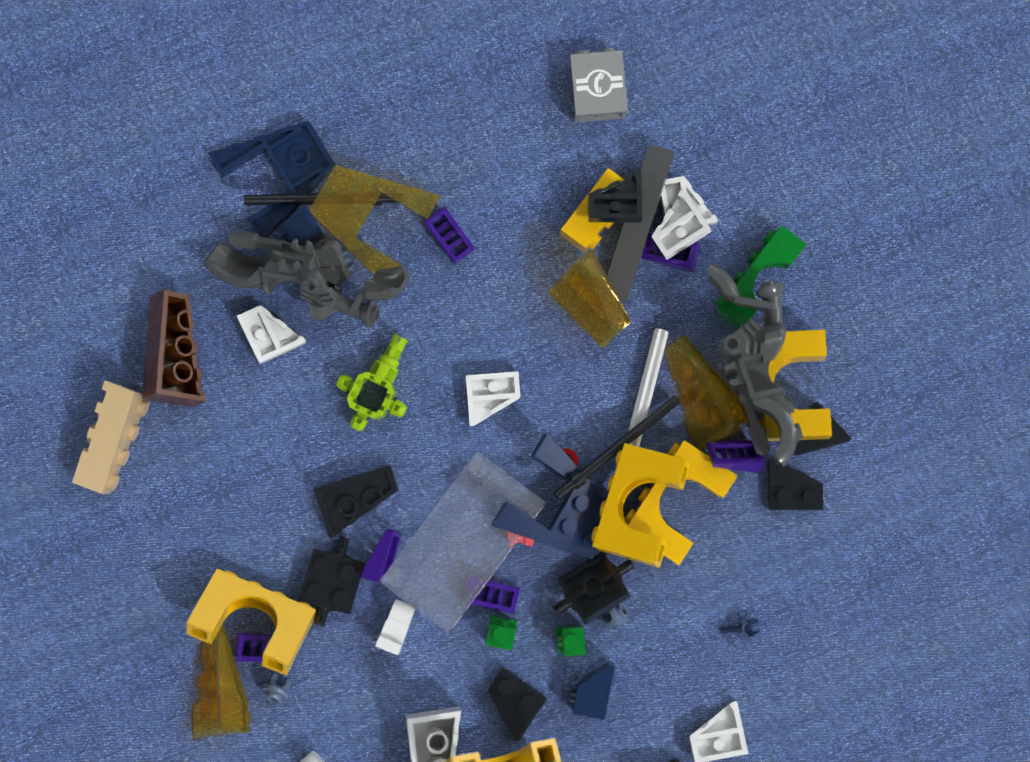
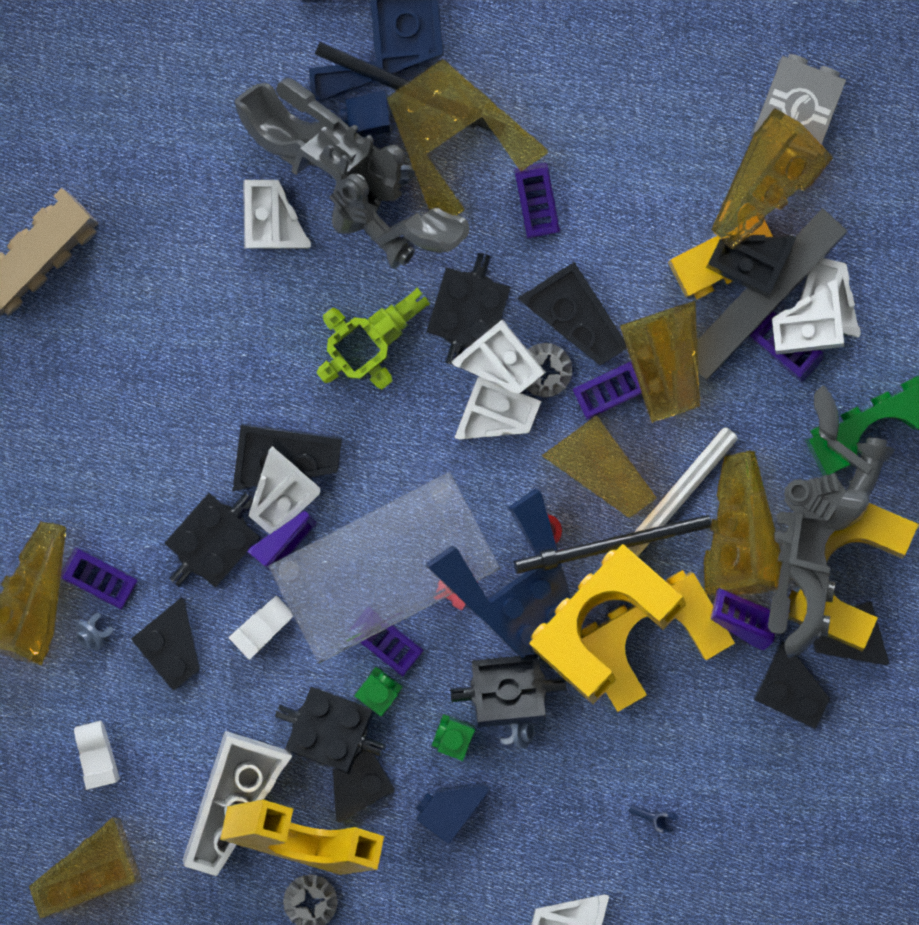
camera: 30 degrees right, 5 degrees up
(170, 358) = (149, 186): wedge -> none
(229, 593) = (90, 498): yellow arch -> none
(337, 671) = (170, 645): none -> black wing
(364, 523) = (280, 492): none -> white wing
(436, 332) = (466, 306): none -> black plate
(476, 355) = (501, 360): none -> white wing
(480, 678) = (330, 730): none -> black plate
(503, 358) = (559, 361): none -> light grey gear
(513, 299) = (576, 313): none -> black wing
(549, 358) = (585, 402): none -> dark purple slope
(583, 397) = (601, 467): none -> clear yellow wedge
(602, 129) = (775, 166): none -> clear yellow wedge

